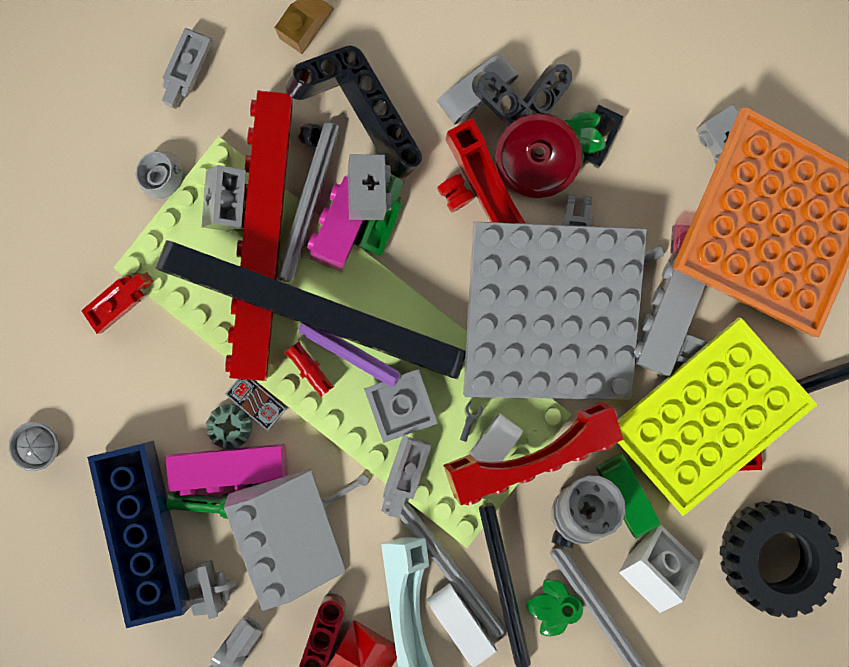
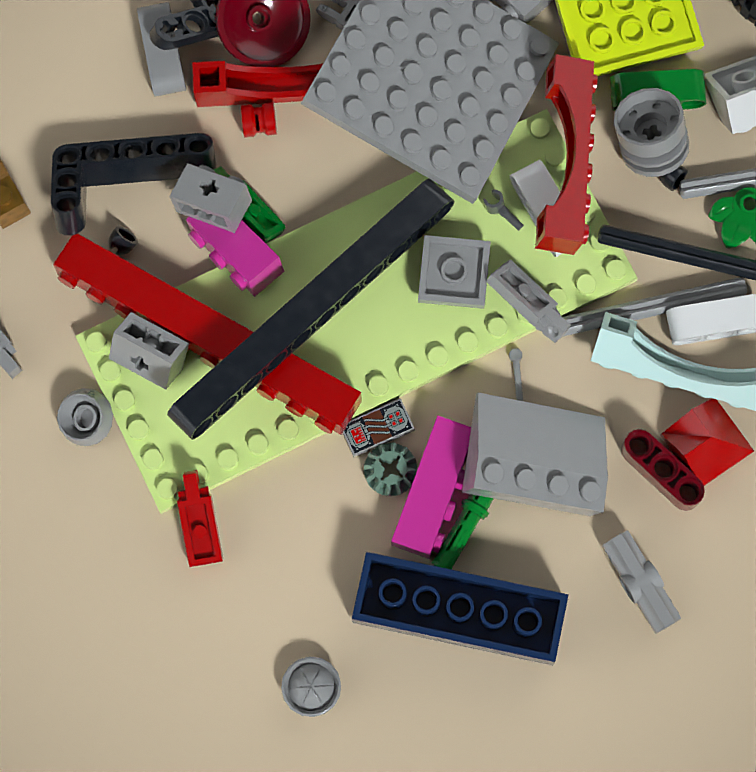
camera: 60 degrees left, 10 degrees down
(205, 577) = (570, 572): light grey hips -> none
(308, 202) = (191, 269): light grey axle -> none
(309, 369) = (370, 348): red pin -> none
(352, 354) = (374, 296): medium lavender axle -> none

